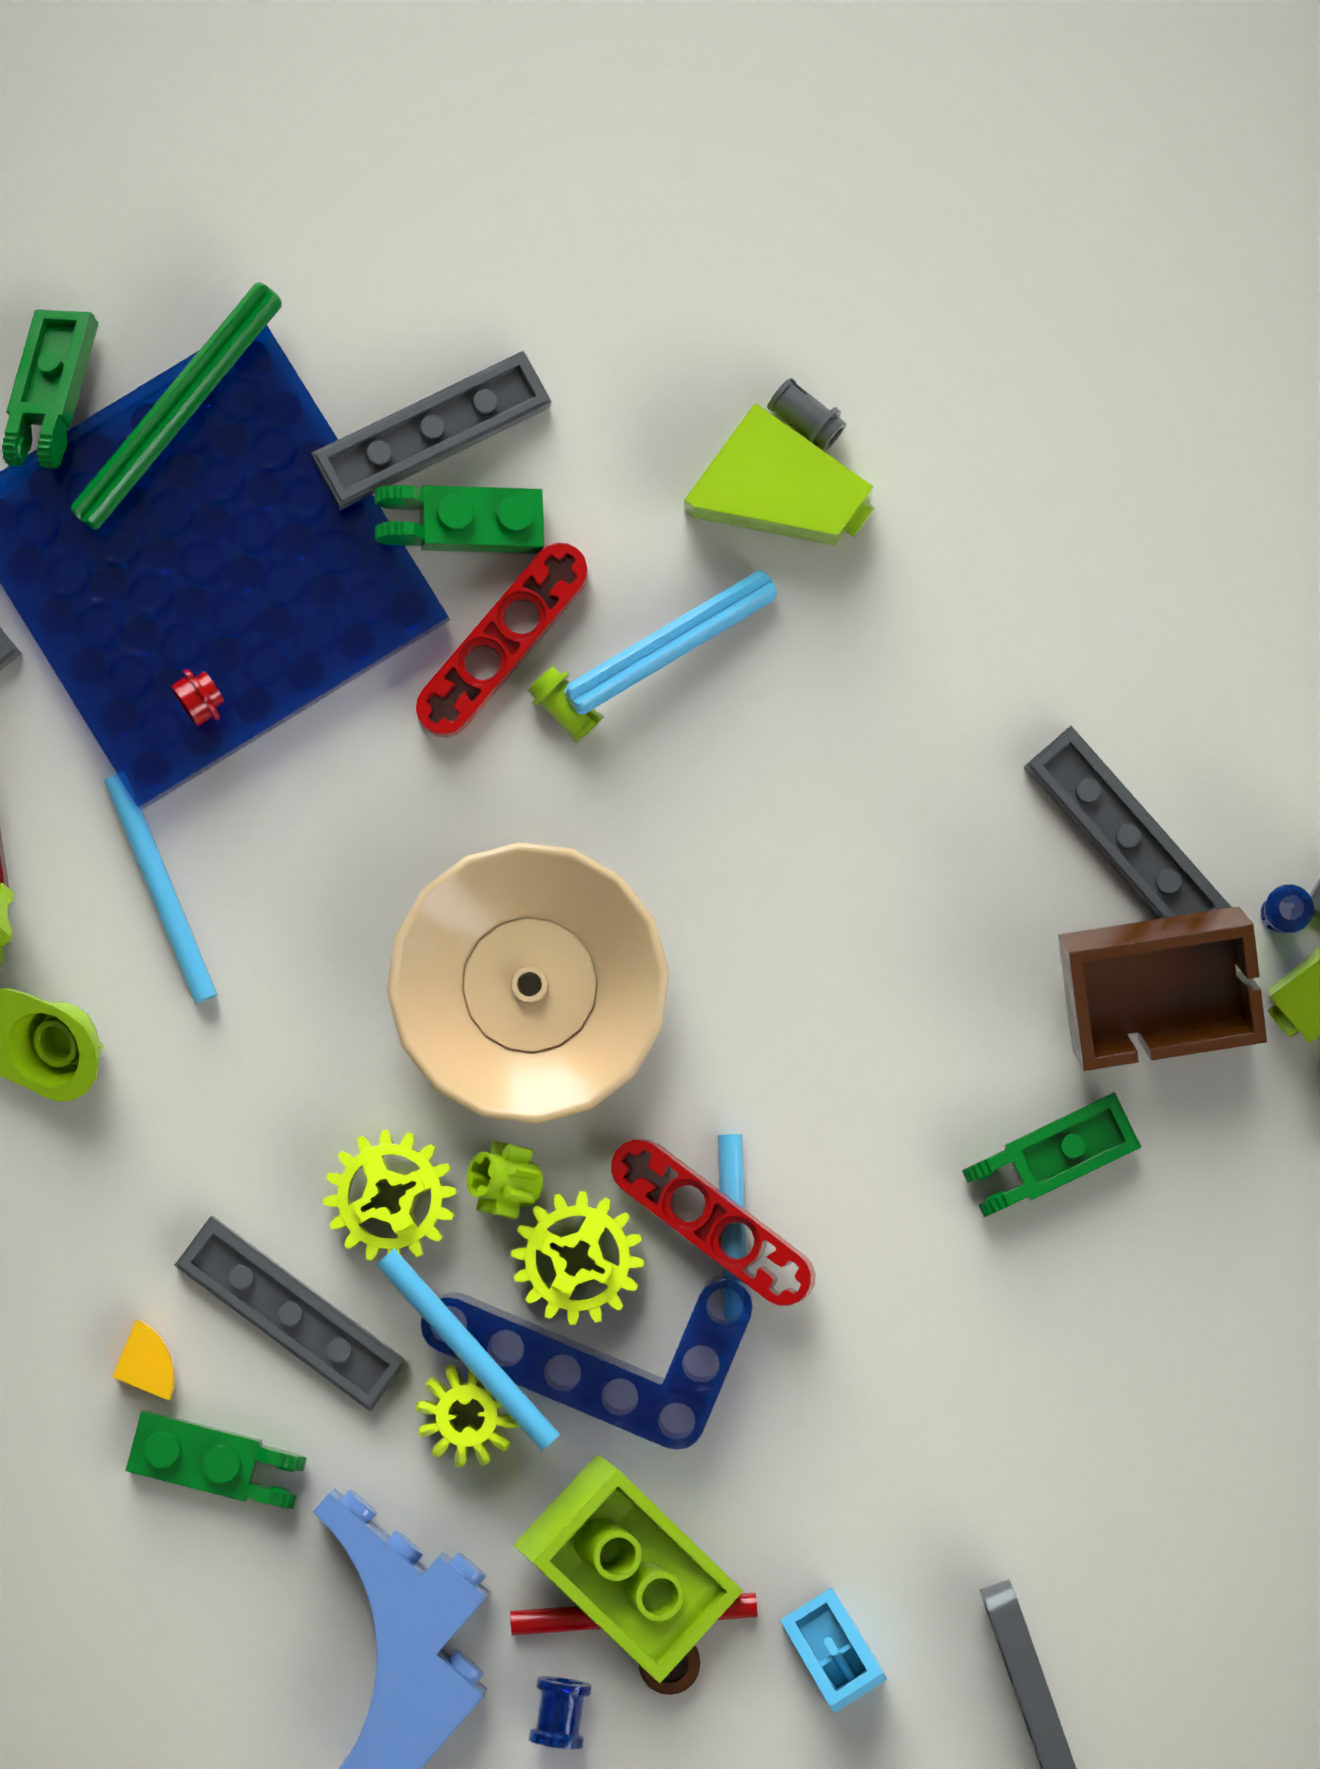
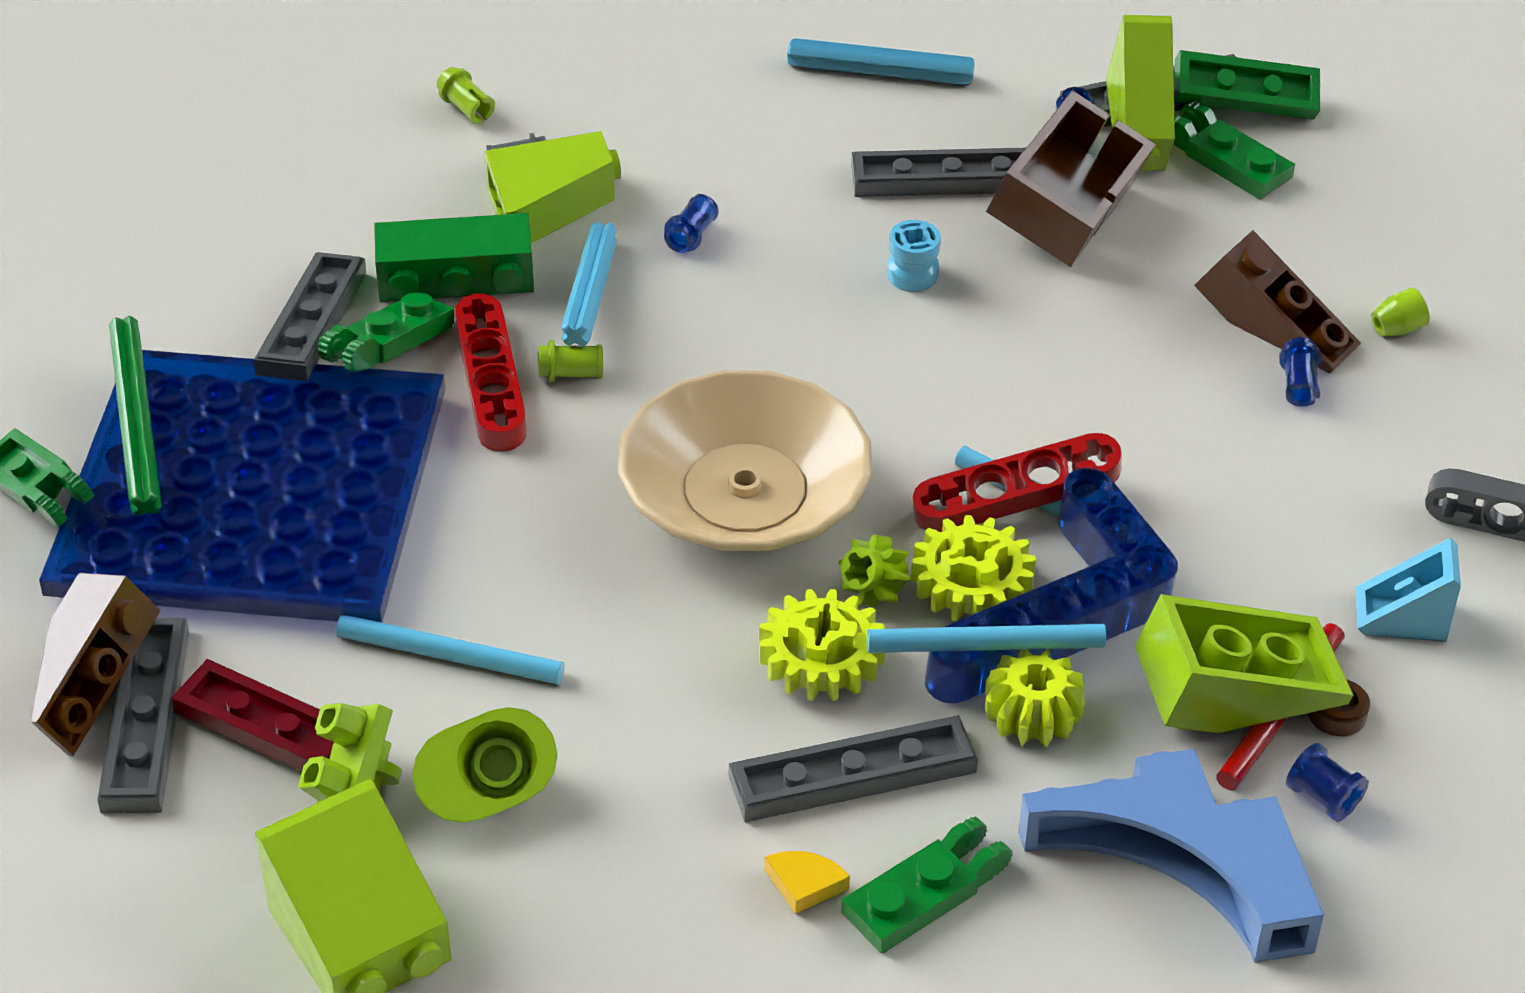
camera: 55 degrees left, 40 degrees down
(198, 697) = (343, 516): red plate -> none
(608, 488) = (454, 256): none -> green brick
(840, 657) = (685, 230): none -> clear blue pin
(856, 282) = (457, 87): none -> lime pin
(944, 908) = (914, 254): none -> medium azure wheel
(1059, 1152) = (1135, 302): green hinge -> none
(1077, 1369) = (1300, 361): none -> clear blue pin
(1151, 1291) = (1272, 303): none -> reddish brown slope
(1239, 1408) = (1401, 313): none -> lime hose
(1245, 641) = (881, 61): none -> medium azure axle

